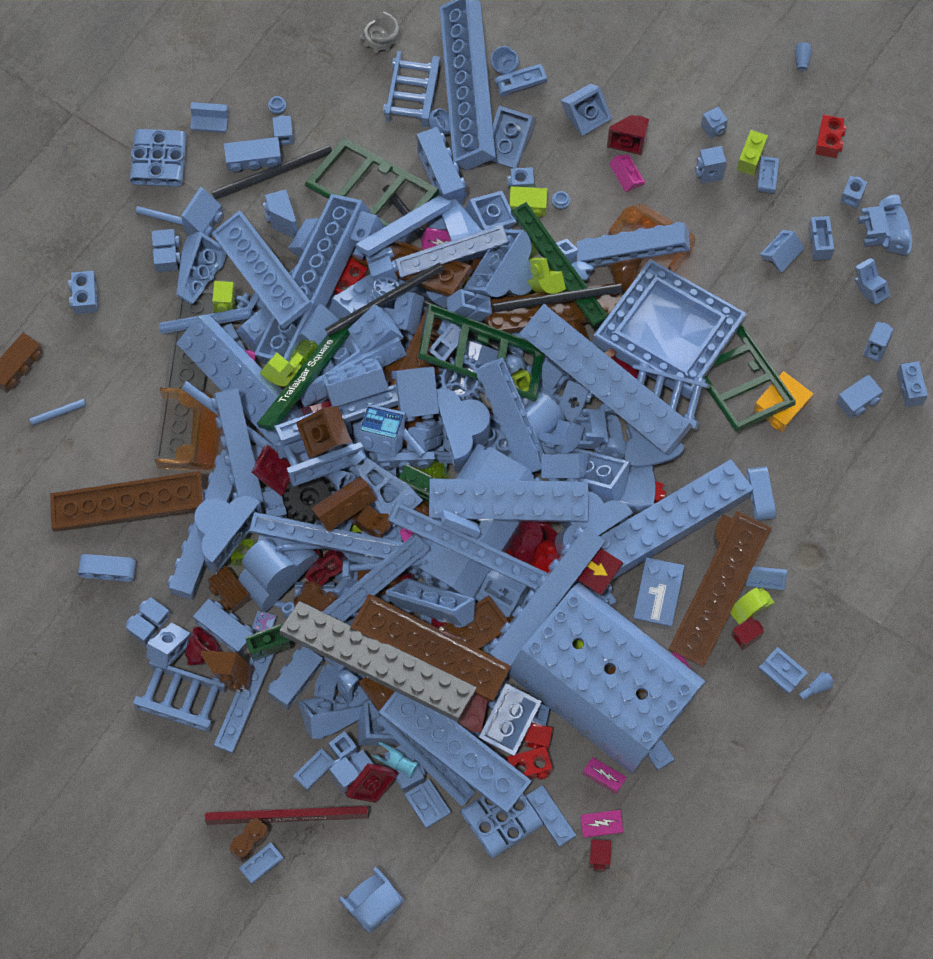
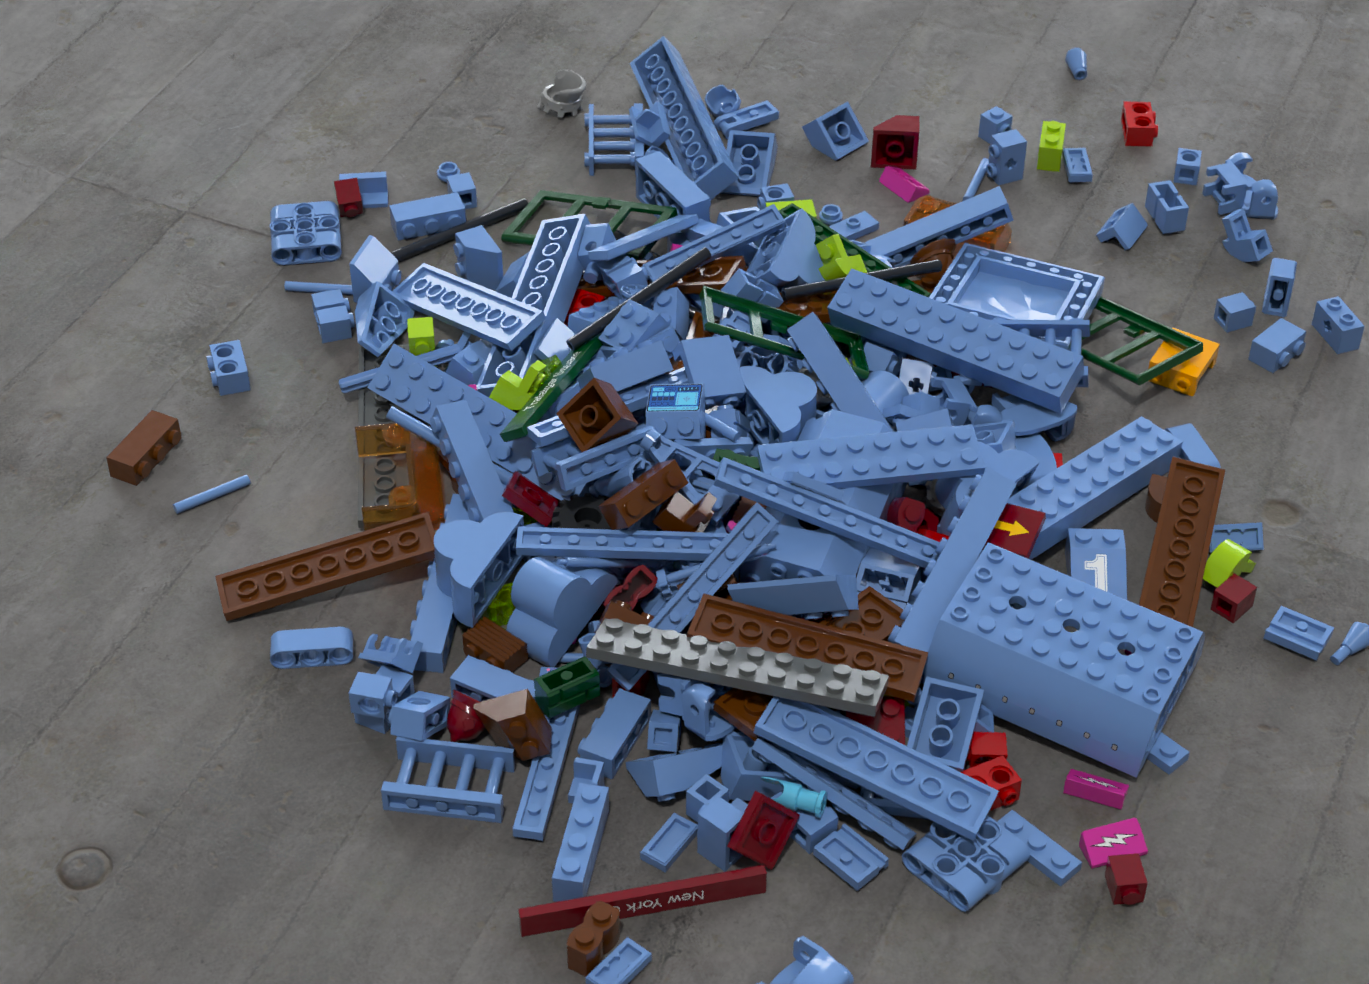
camera: 10 degrees left, 25 degrees down
(137, 628) = (372, 695): none -> medium blue brick
(157, 588) = (393, 652): none -> medium blue hinge
(195, 126) = (348, 197): none -> dark red brick
(255, 764) = (580, 842): none -> medium blue brick
(269, 716) = (586, 772): none -> medium blue panel
(439, 86) = (650, 125): none -> medium blue panel
(575, 215) = (856, 226): none -> medium blue plate
(680, 184) = (973, 187): none -> medium blue bar
(839, 356) = (1234, 312): none -> medium blue brick

